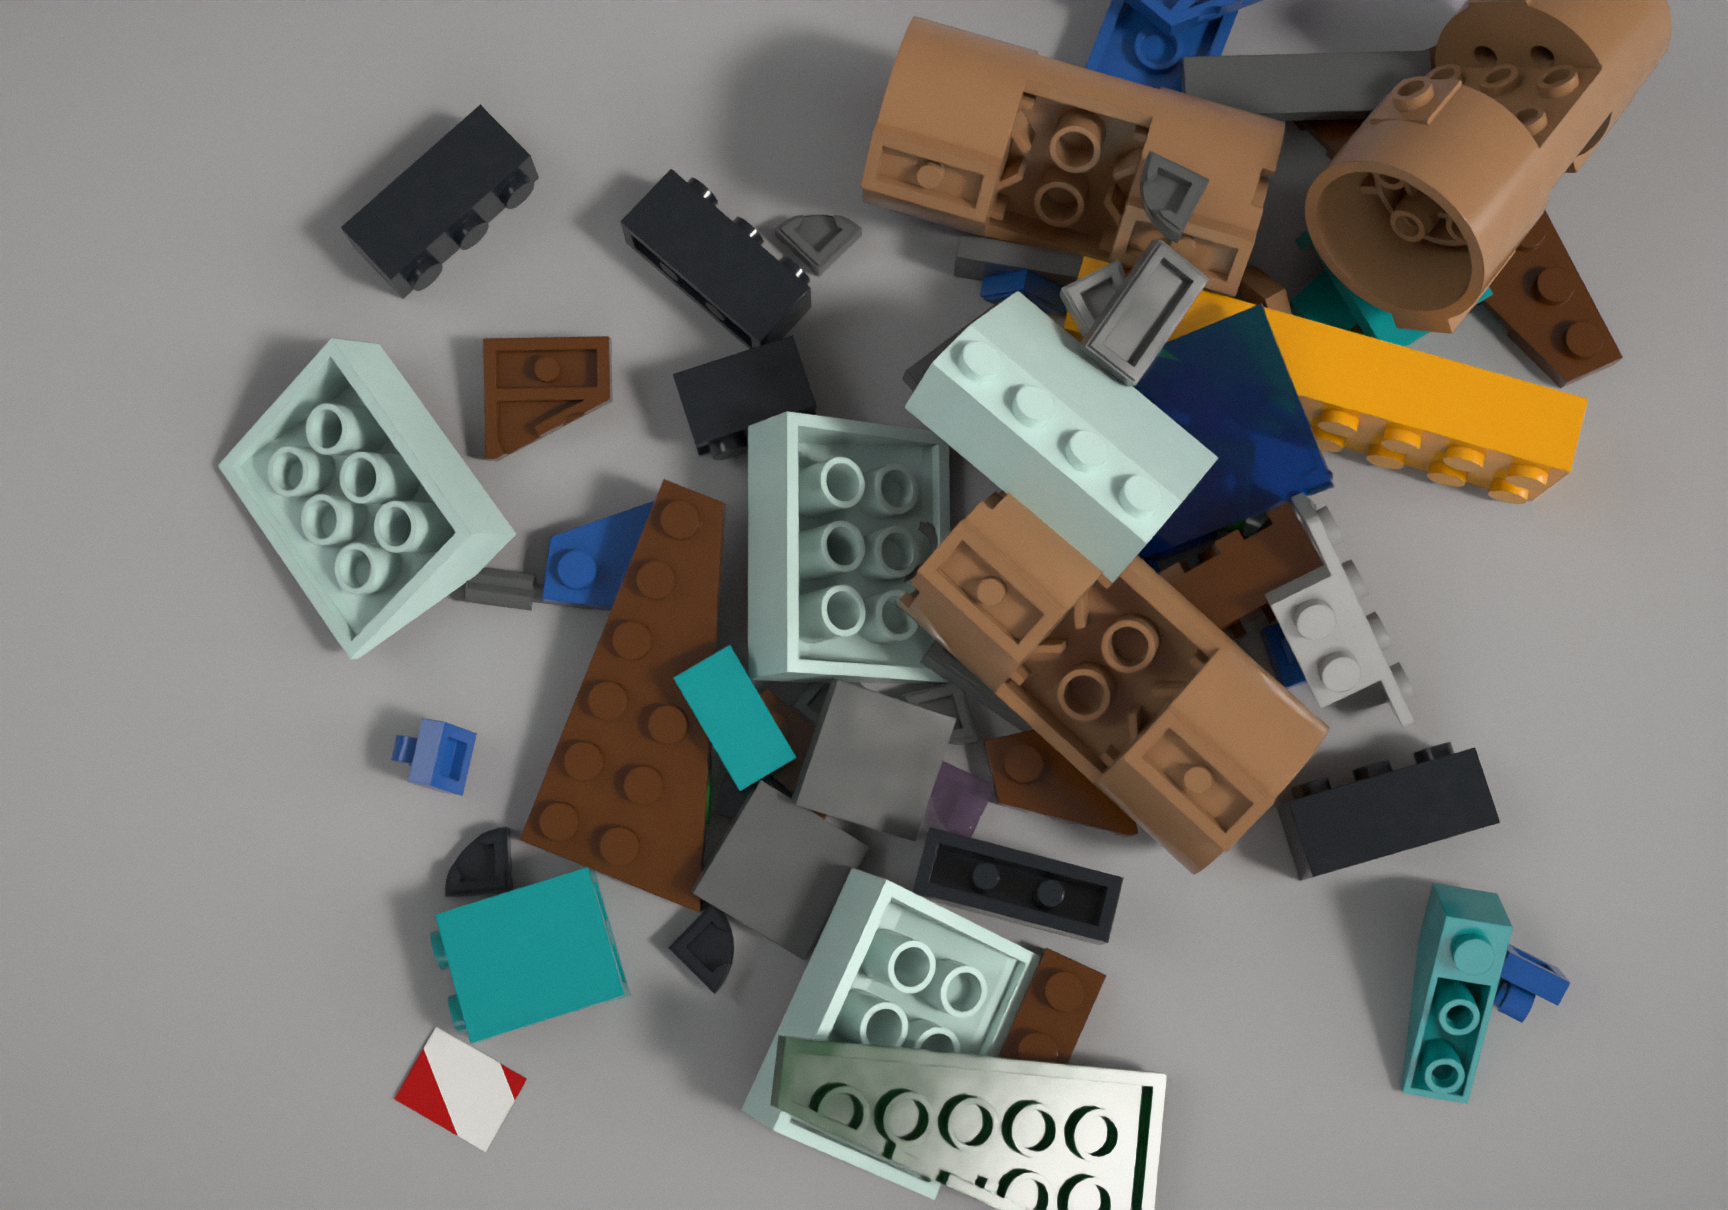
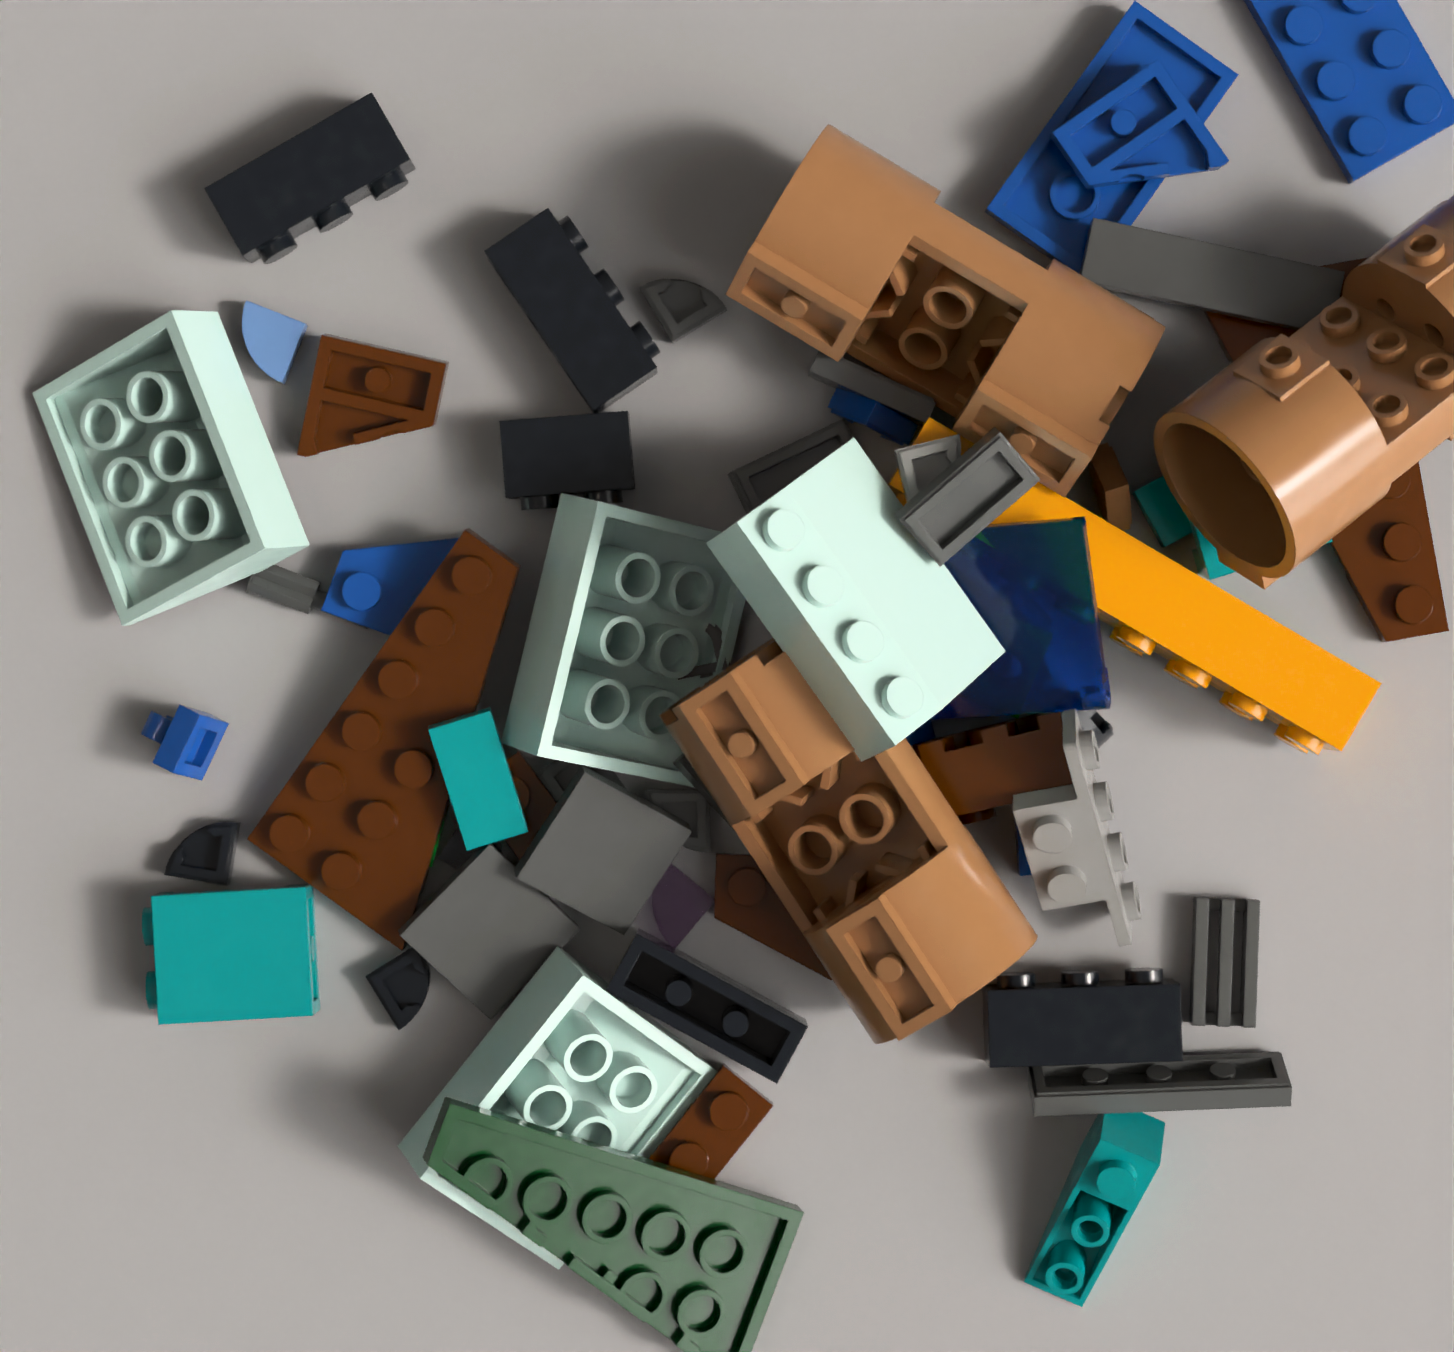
camera: 20 degrees right, 10 degrees up
(438, 360) = (271, 339): none -> medium blue tile
(460, 1089) = (140, 1057): white sticker -> none
(1170, 194) = (1020, 392): dark grey tile -> none
(1480, 856) = (1189, 1084): none -> dark grey tile
(1525, 978) = (1168, 1207): blue tile -> none
(1529, 719) = (1249, 962): none -> dark grey tile

